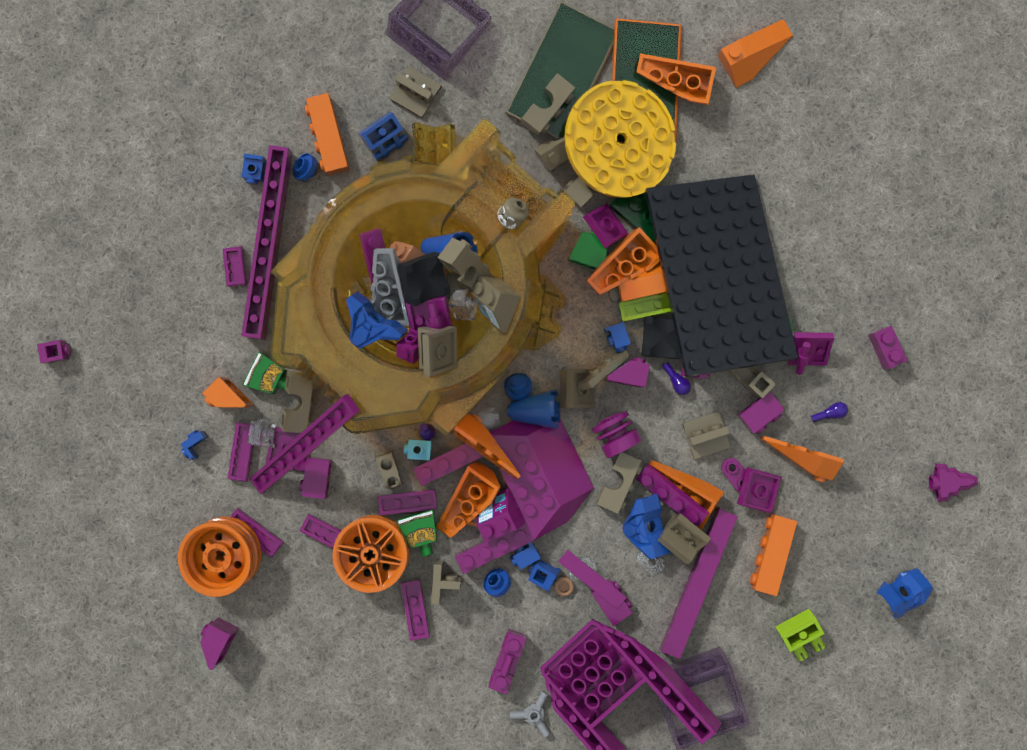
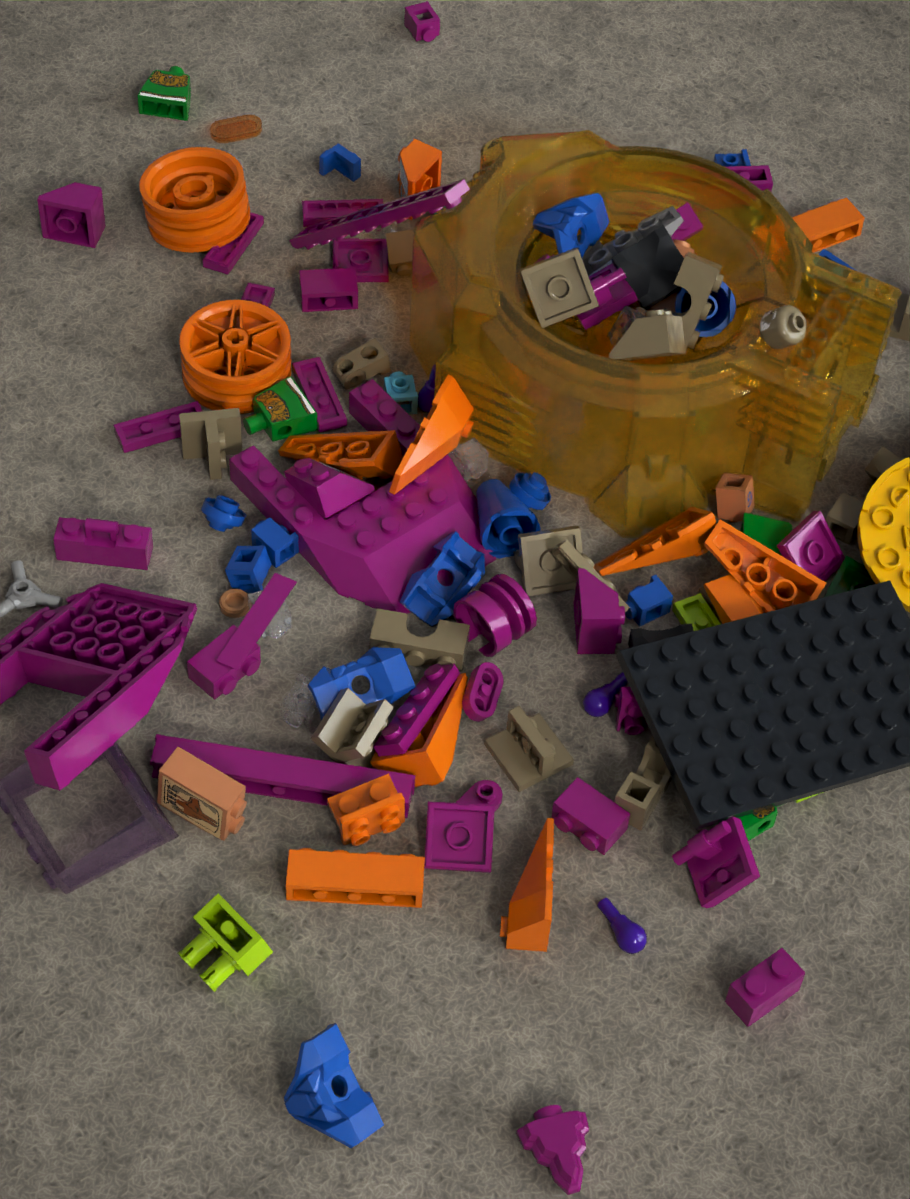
camera: 75 degrees right, 35 degrees down
(96, 555) = (166, 94): none -> green torso
(139, 510) = (236, 128): none -> clear orange tile
(552, 259) = (734, 496): none -> nougat brick
(569, 441) = (429, 598): none -> blue piece
(580, 317) = (670, 541): none -> orange wedge
(662, 452) = (480, 697): none -> magenta plate
(711, 633) = (201, 794): none -> nougat brick
(740, 541) = (368, 810): none -> orange bracket

